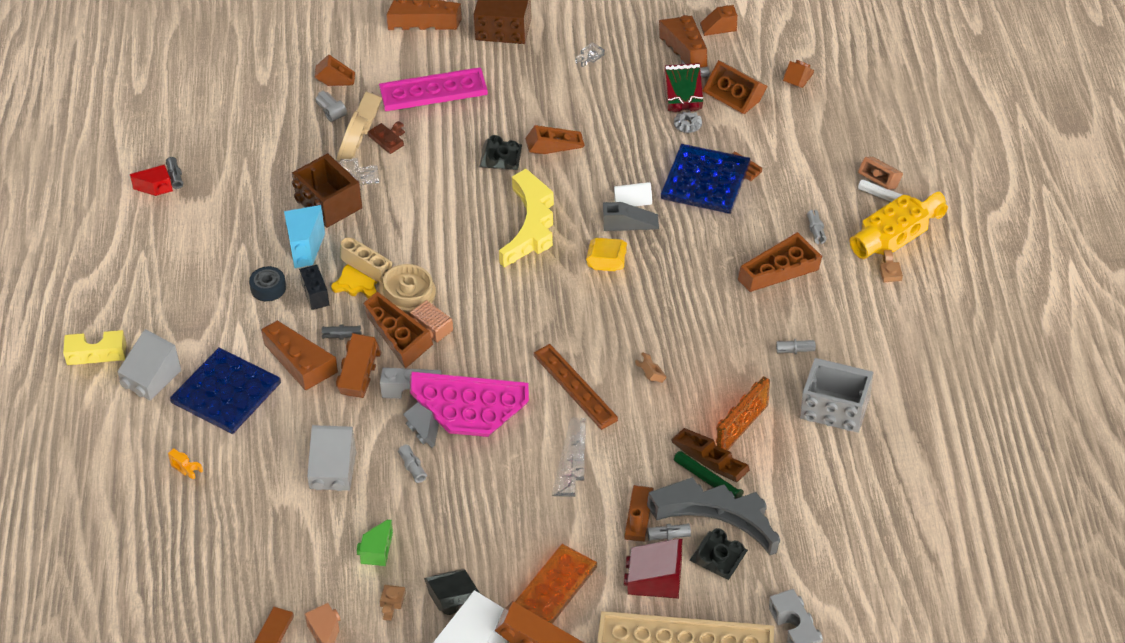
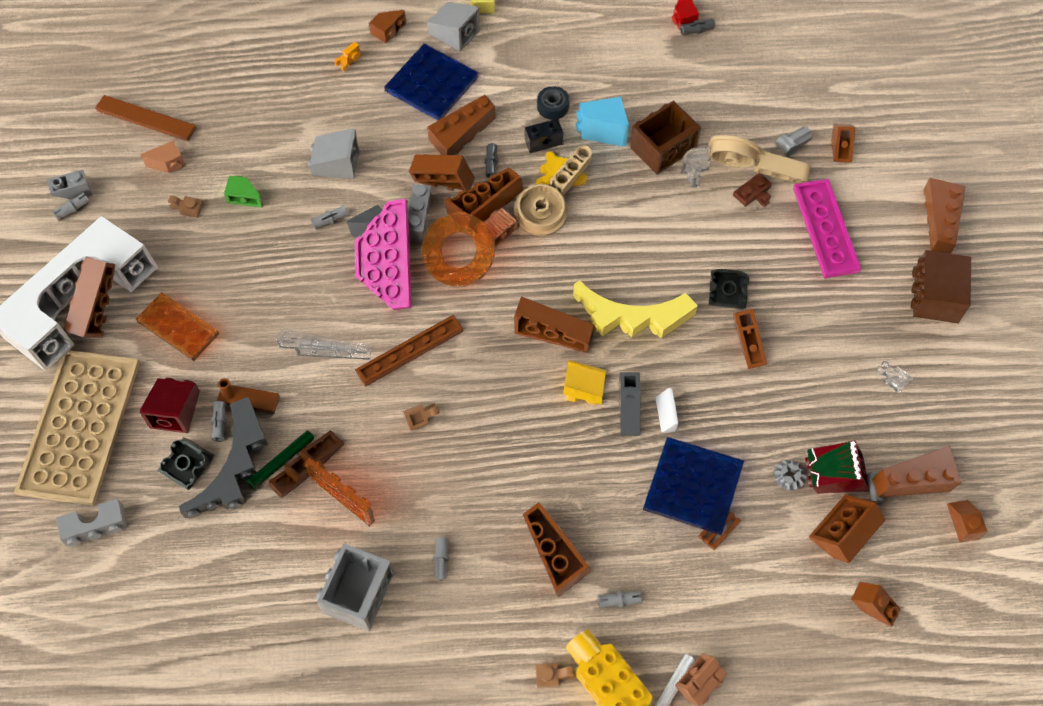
camera: 90 degrees right, 15 degrees up
(139, 432) = (387, 24): none -> dark orange slope
(450, 590) = (187, 247): pearl dark grey slope -> none
(480, 325) = (434, 241): none -> clear orange plate
(548, 274) = (552, 326): none -> dark orange wedge

